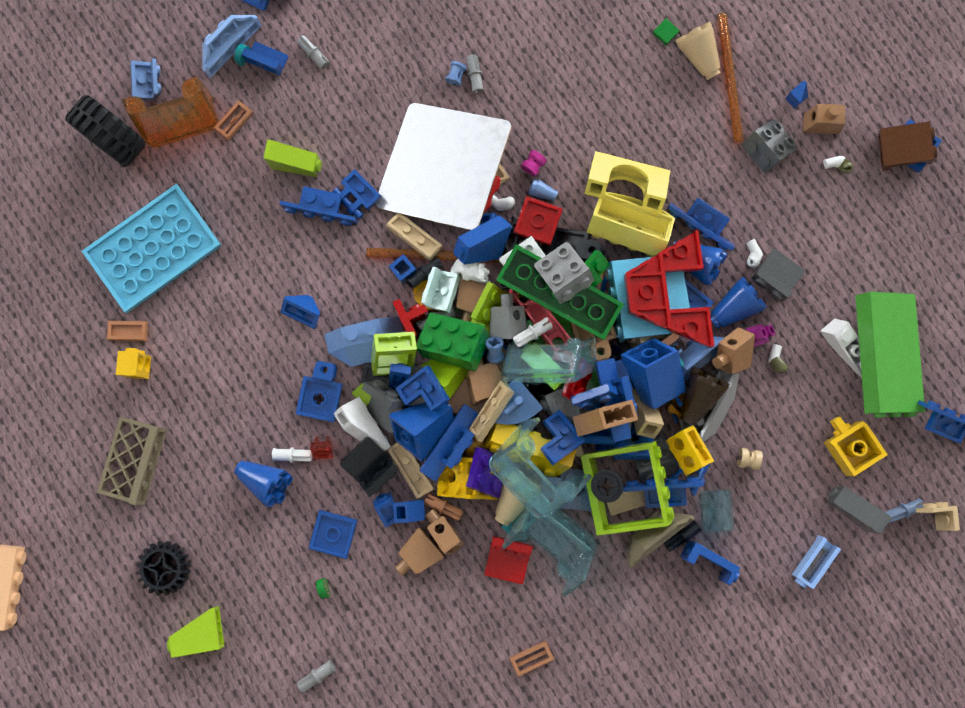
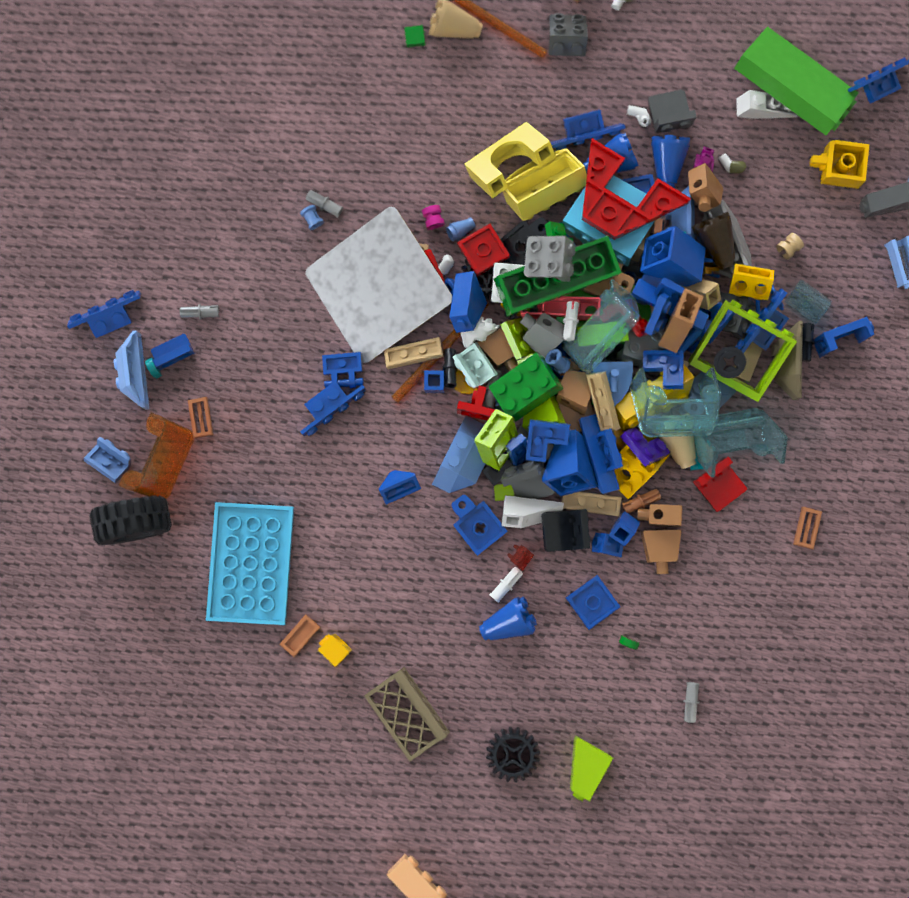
camera: 55 degrees left, 0 degrees up
(291, 159) = (274, 395): lime slope -> none

